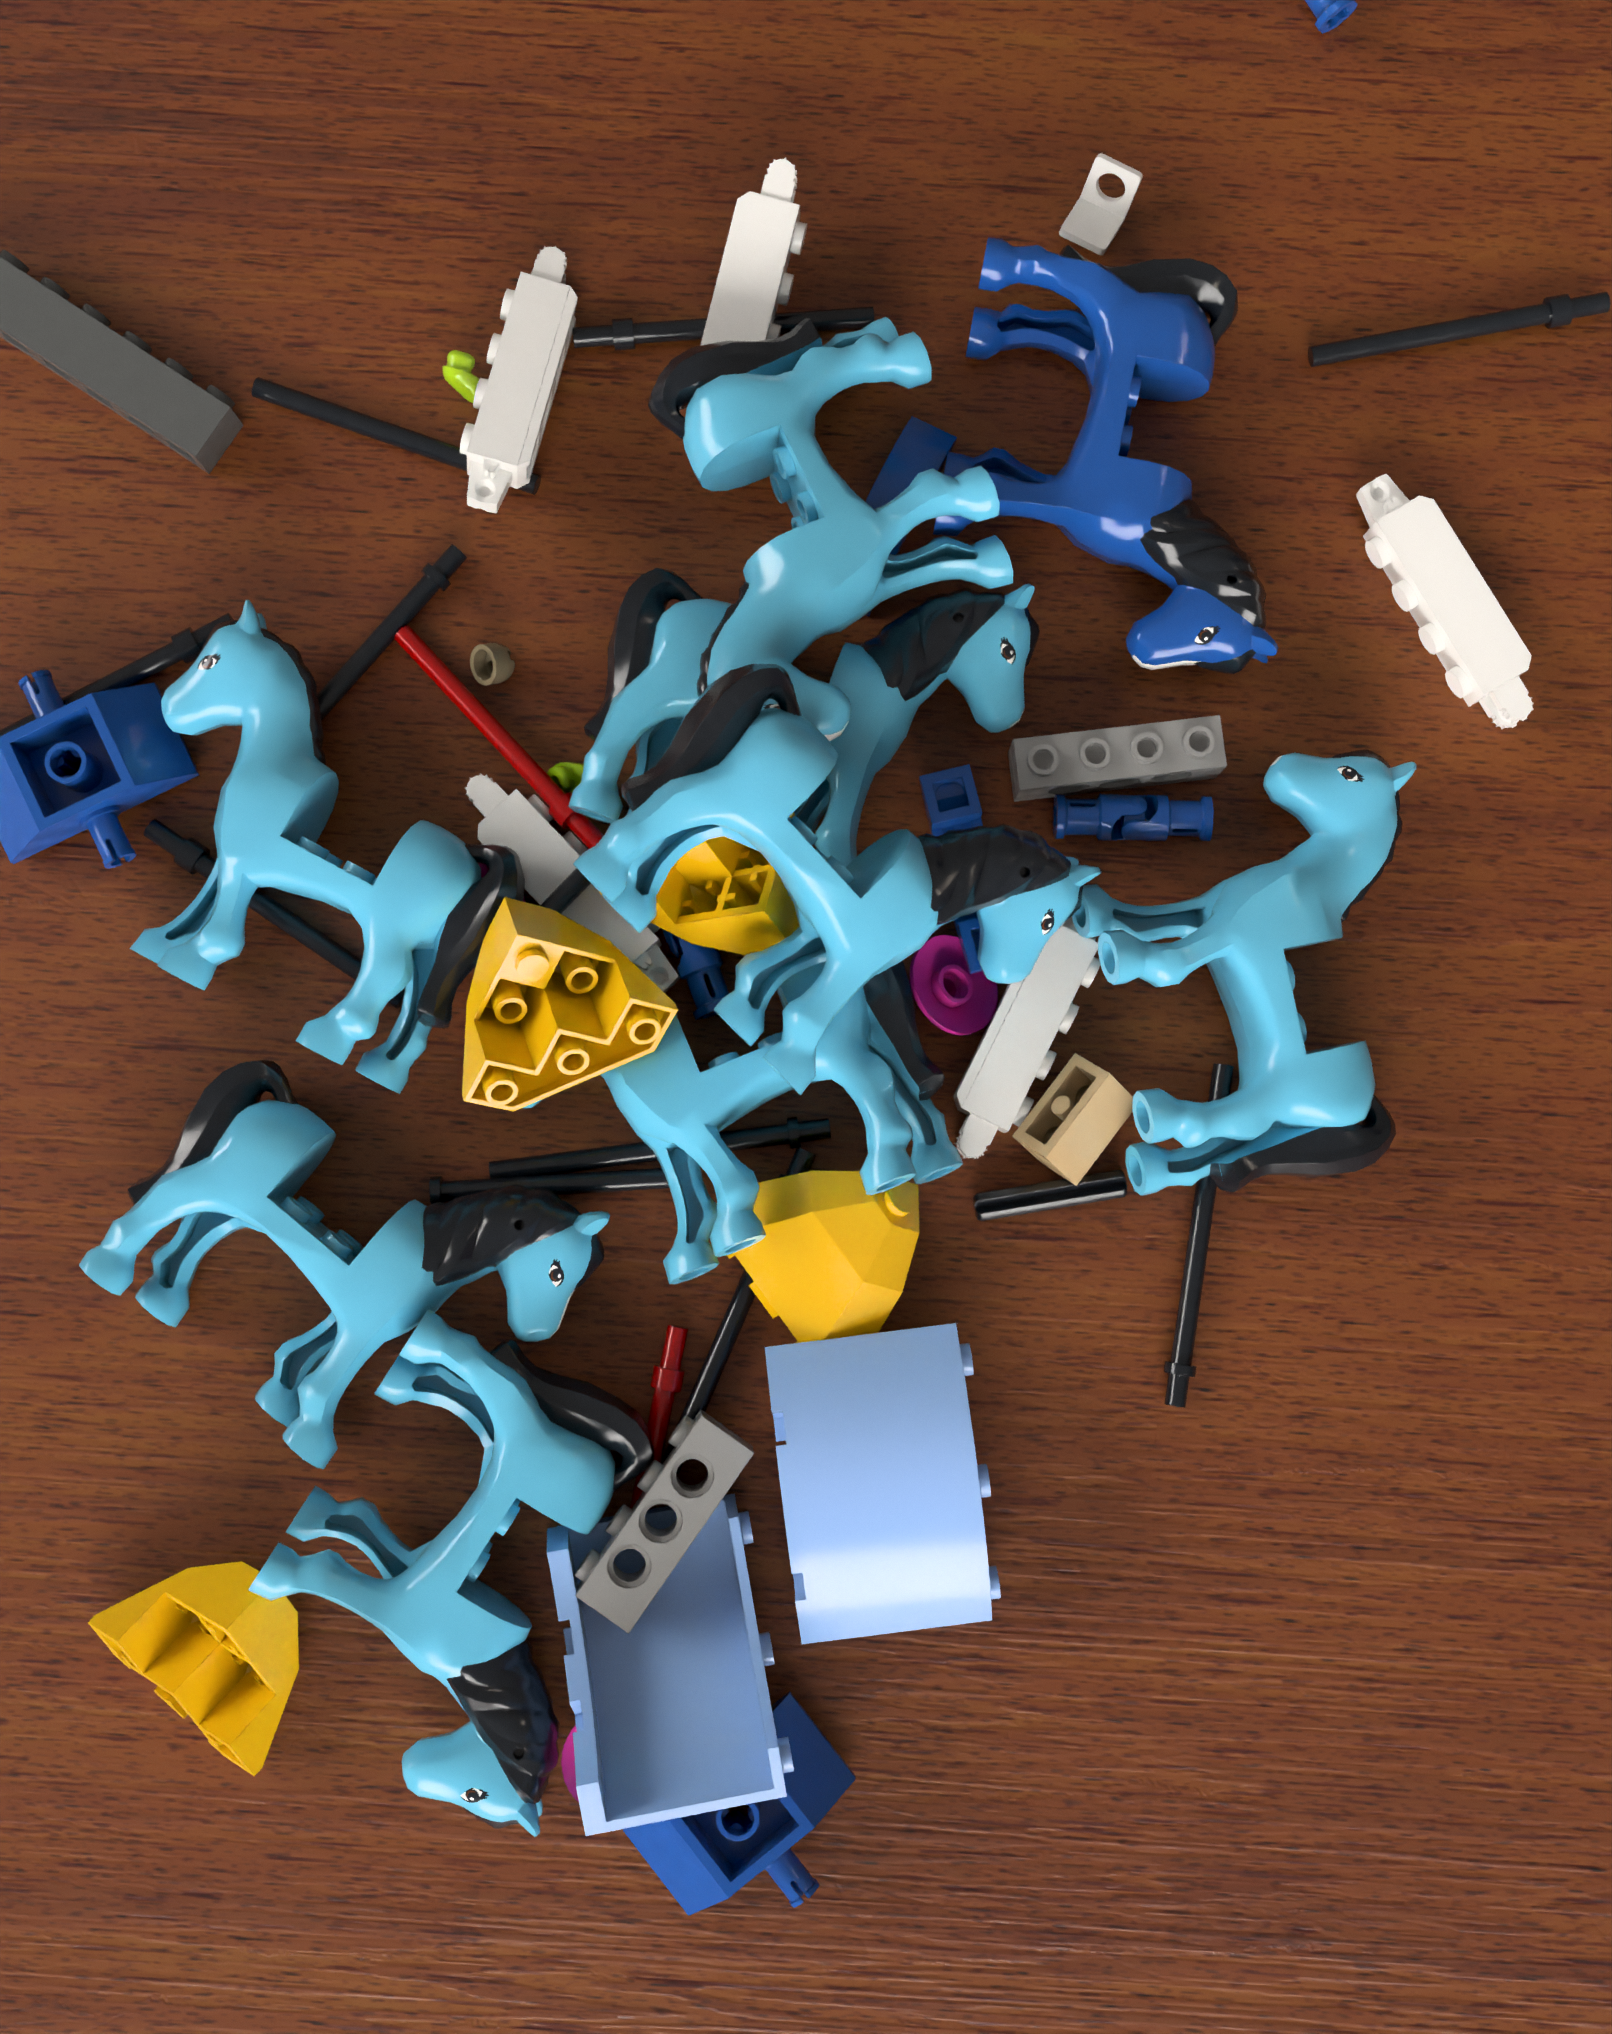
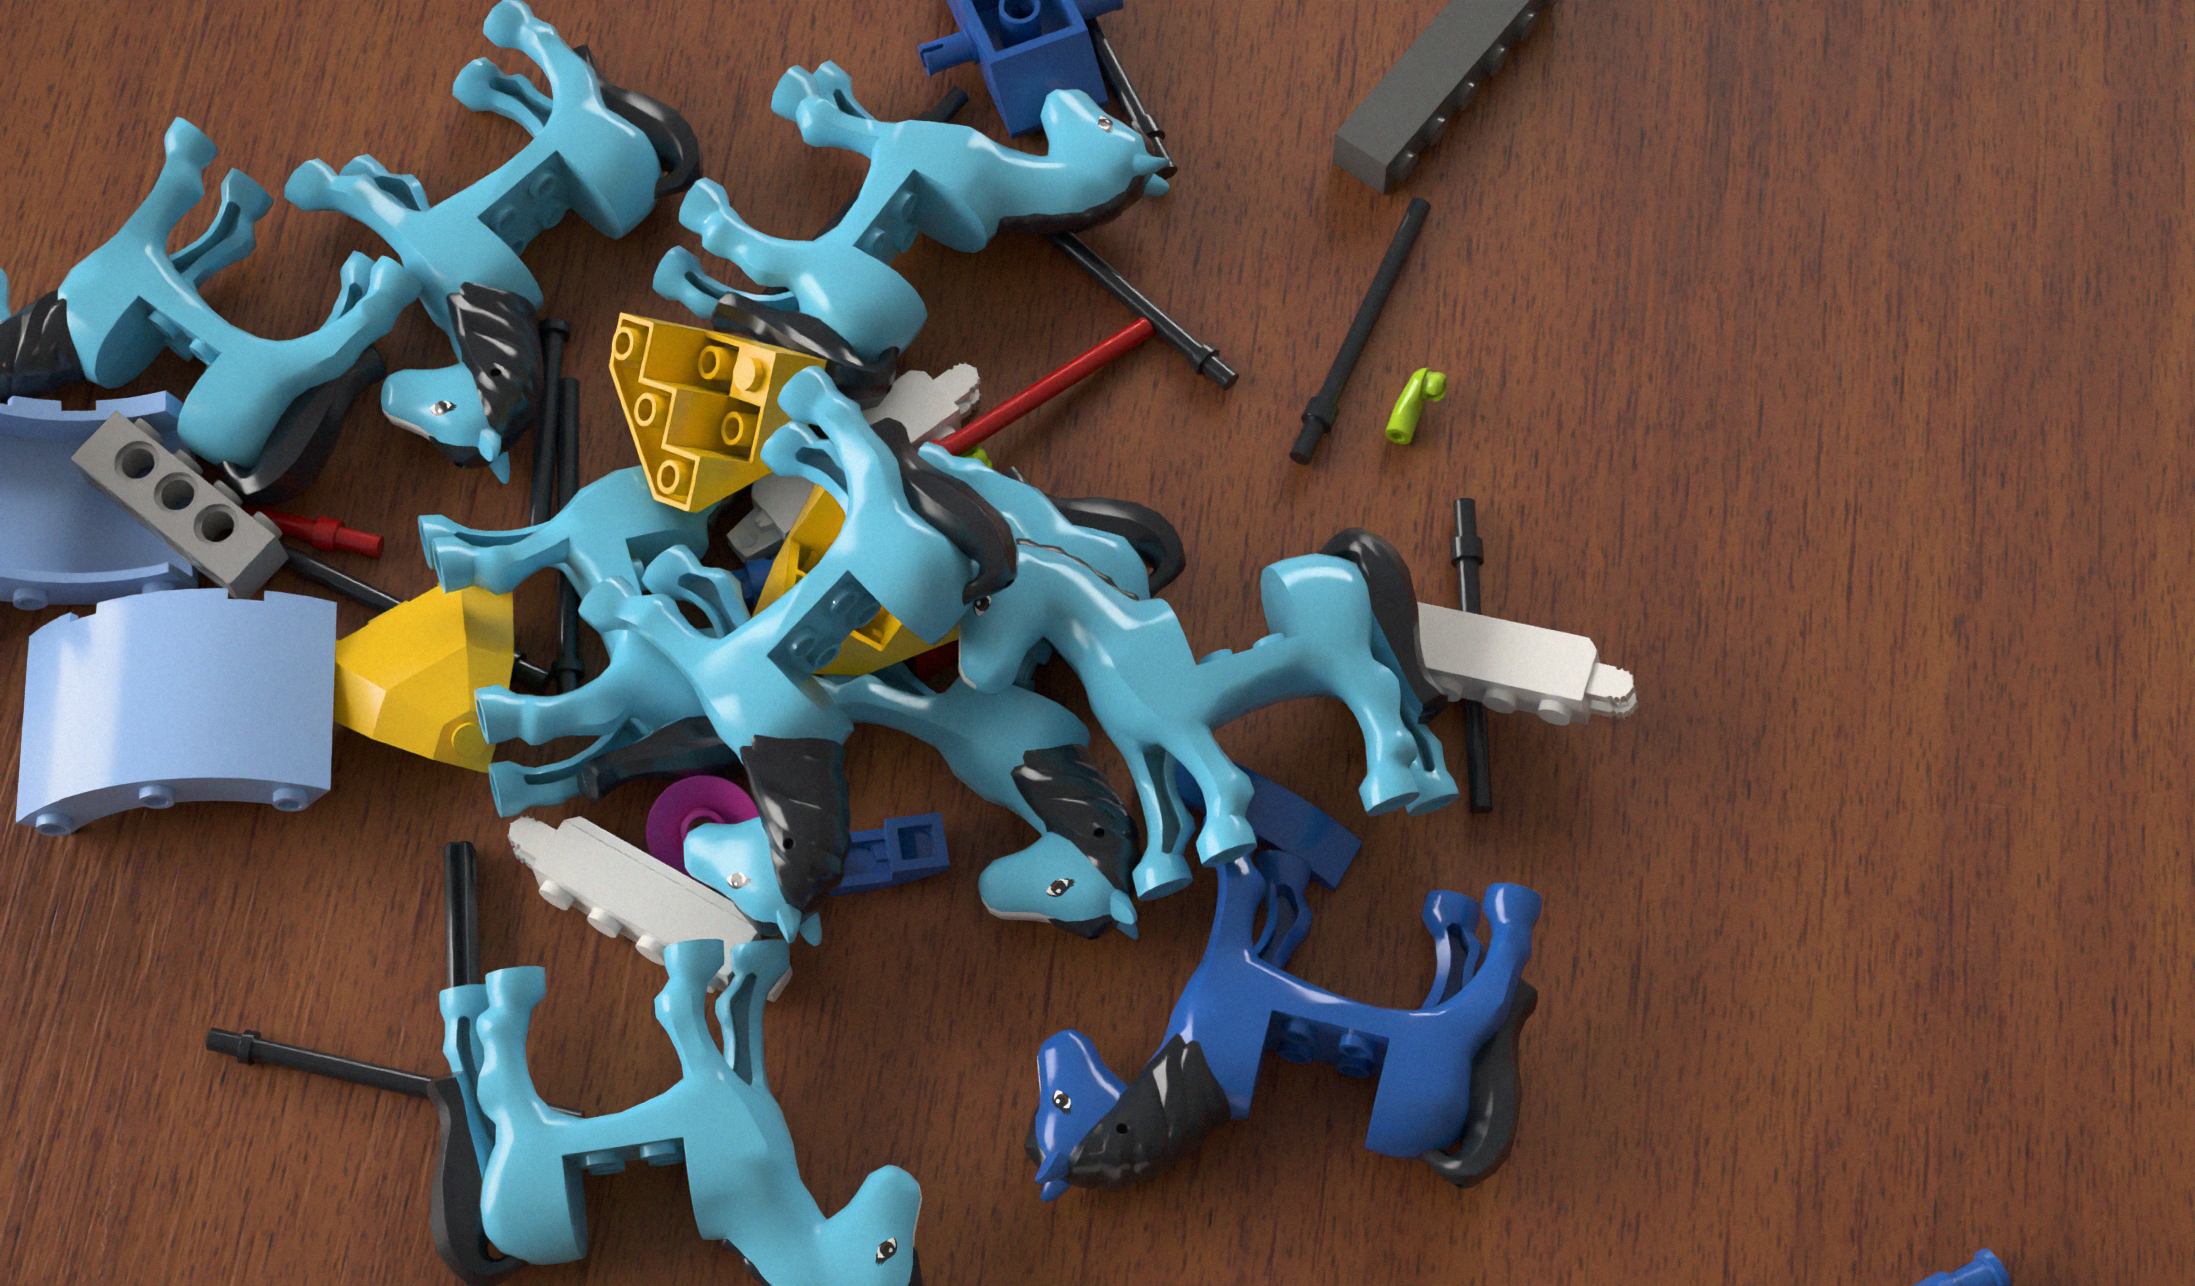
camera: 95 degrees right, 20 degrees down
(212, 1653) = (119, 113): yellow brick -> none
(487, 654) = (1104, 404): dark tan hinge -> none
(521, 382) = (1406, 438): white hinge -> none
(1075, 1119) = (531, 928): tan brick -> none
(1097, 216) = (1593, 1055): white bracket -> none
(1116, 758) = (941, 1021): light grey brick -> none
(1163, 817) = (873, 1033): blue piece -> none

